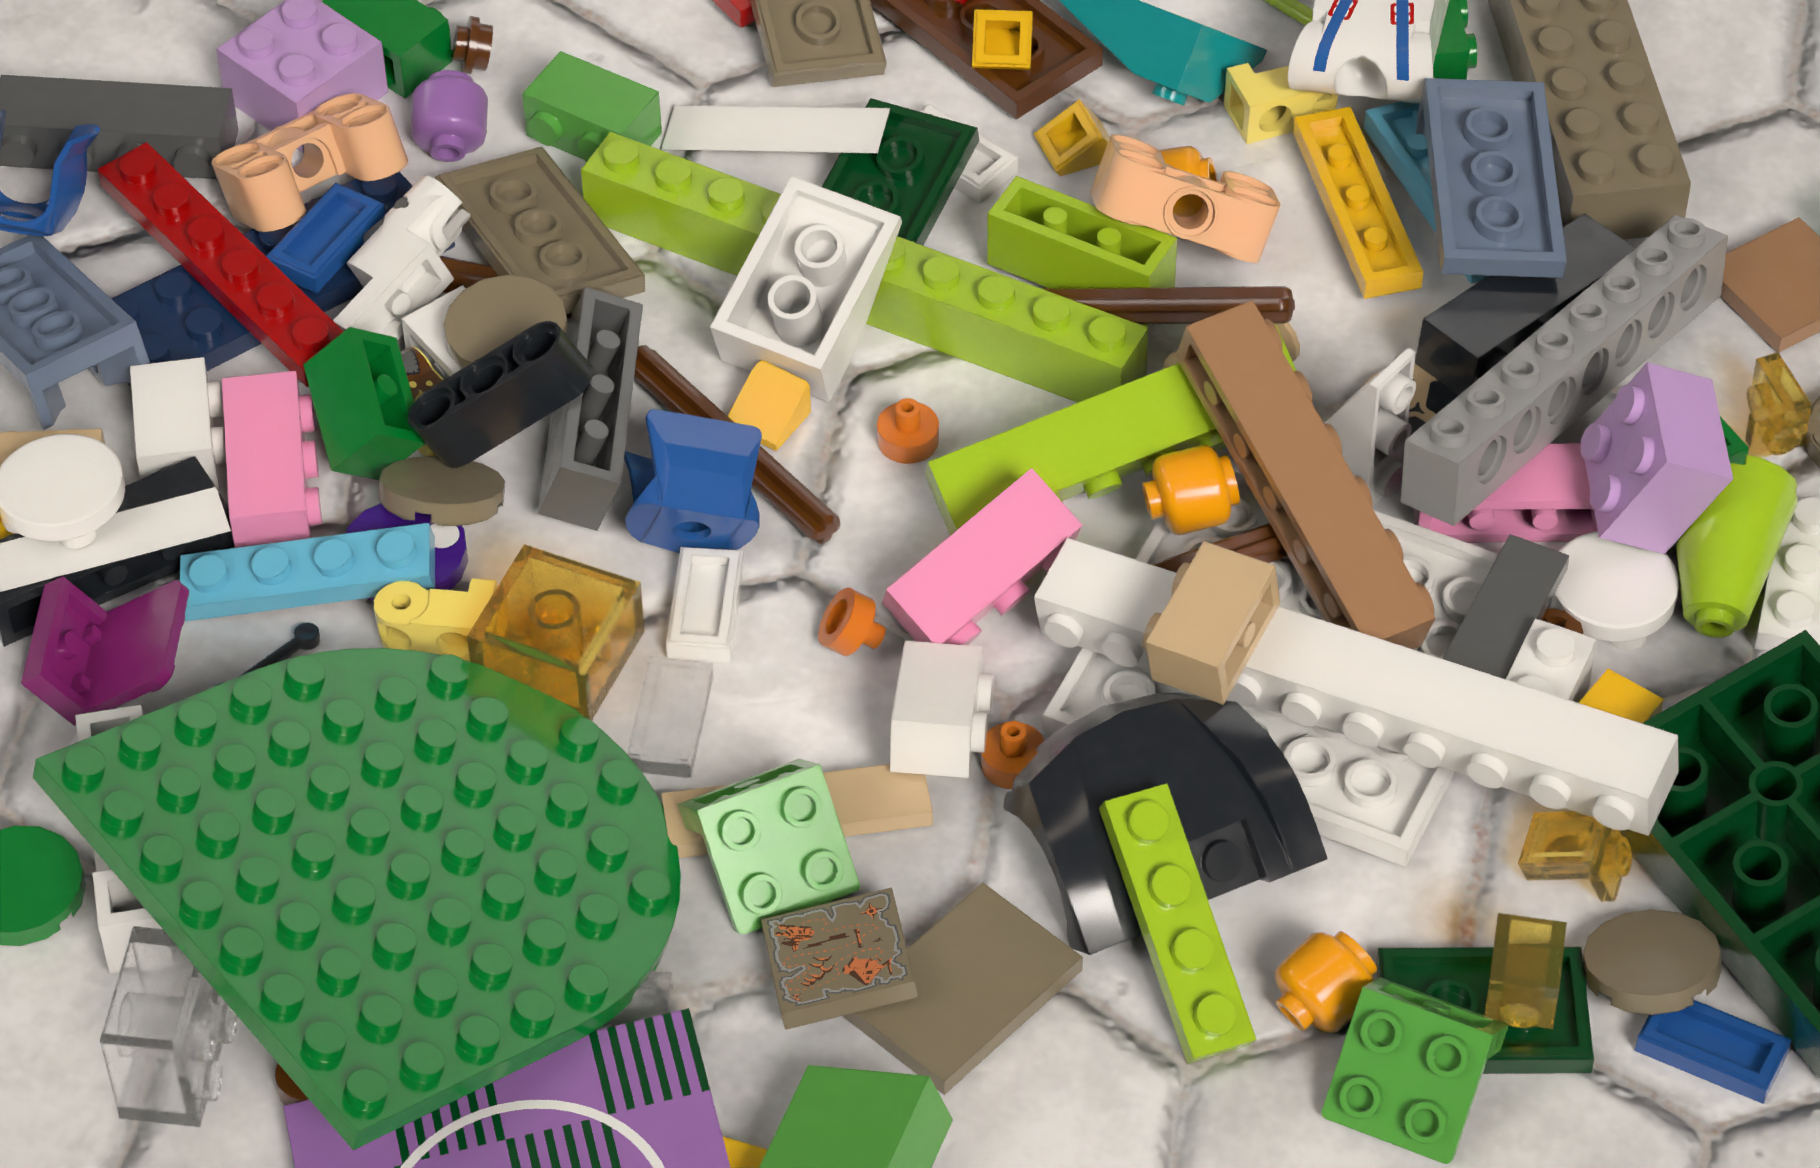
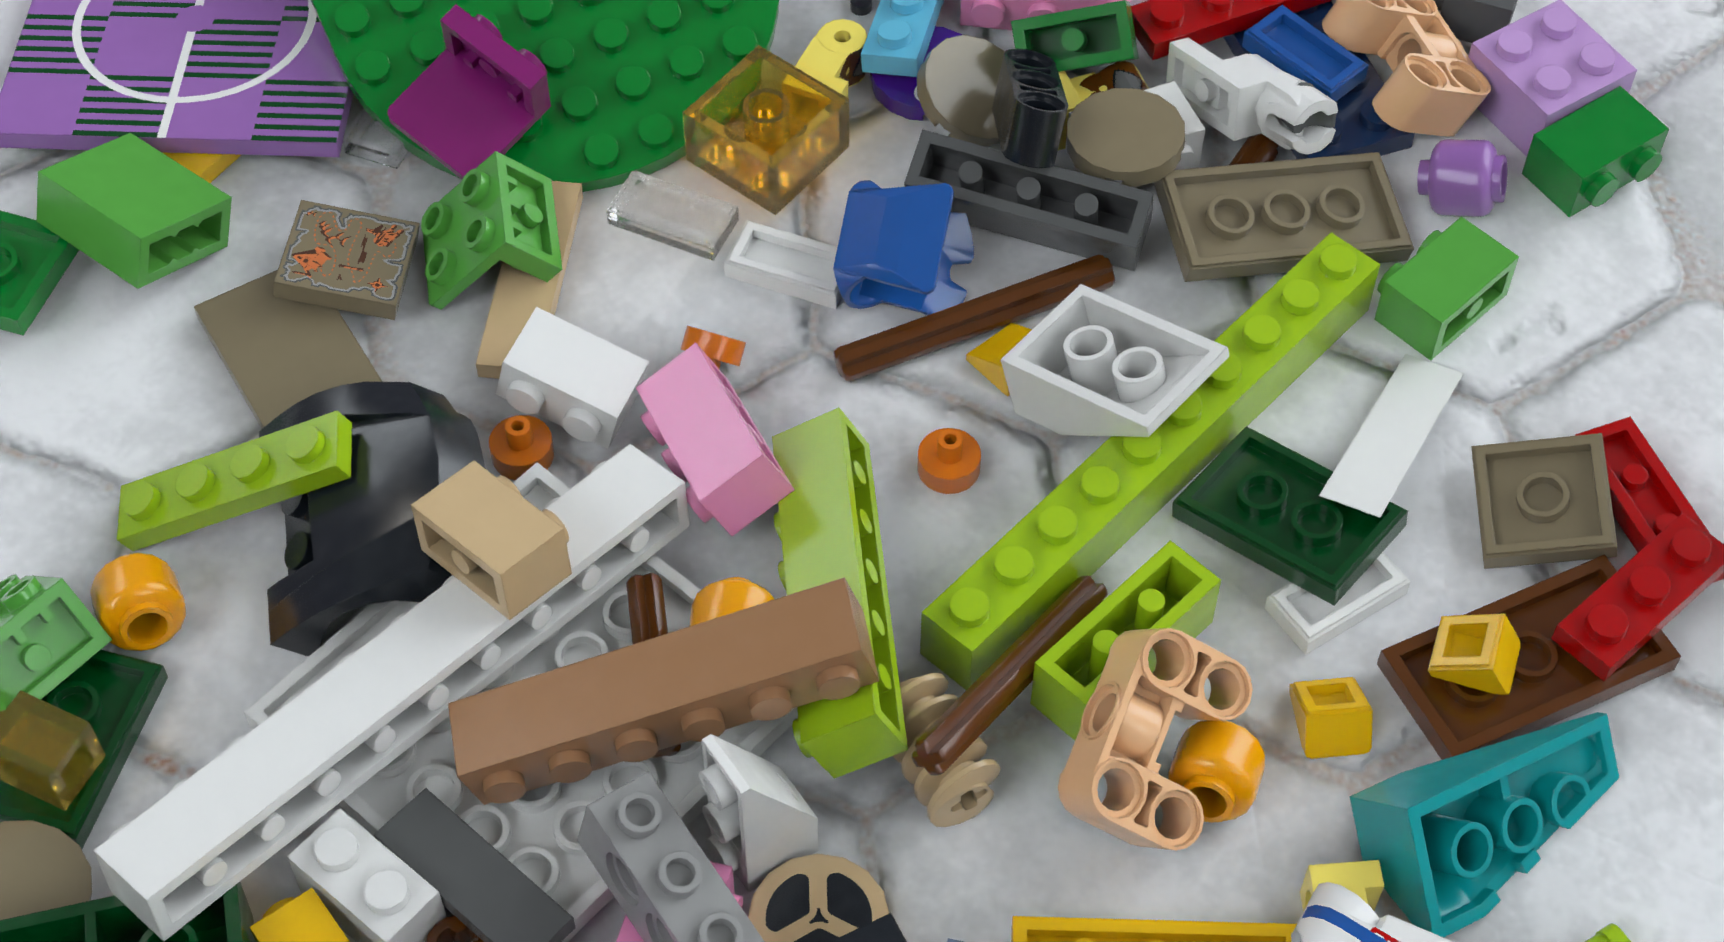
camera: 105 degrees right, 5 degrees up
(472, 45) = (1567, 216): reddish brown plate -> none
(618, 864) = (472, 96): none -> magenta bracket

